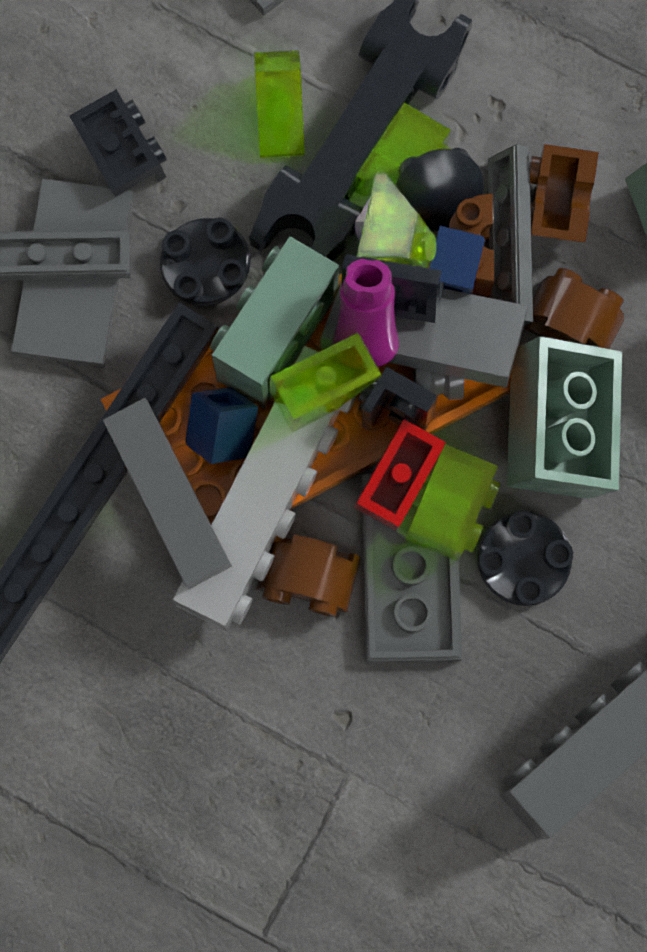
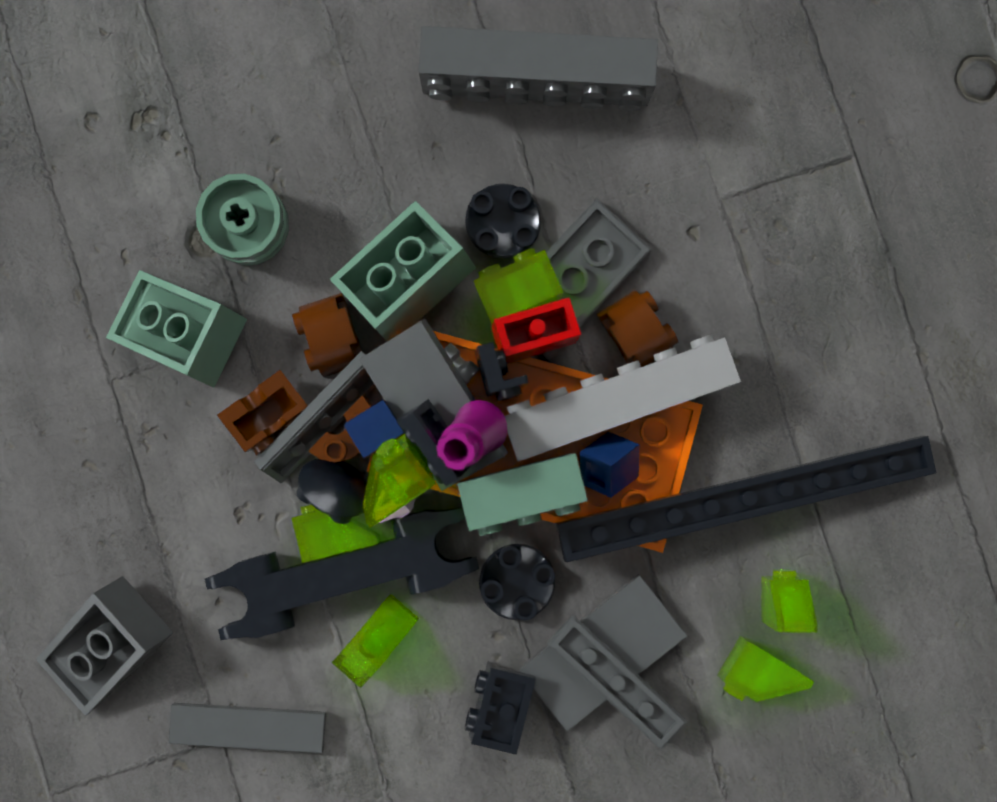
camera: 135 degrees left, 10 degrees up
(167, 493) = (685, 448): dark grey tile -> none
(323, 382) = (535, 419): clear neon green slope -> none

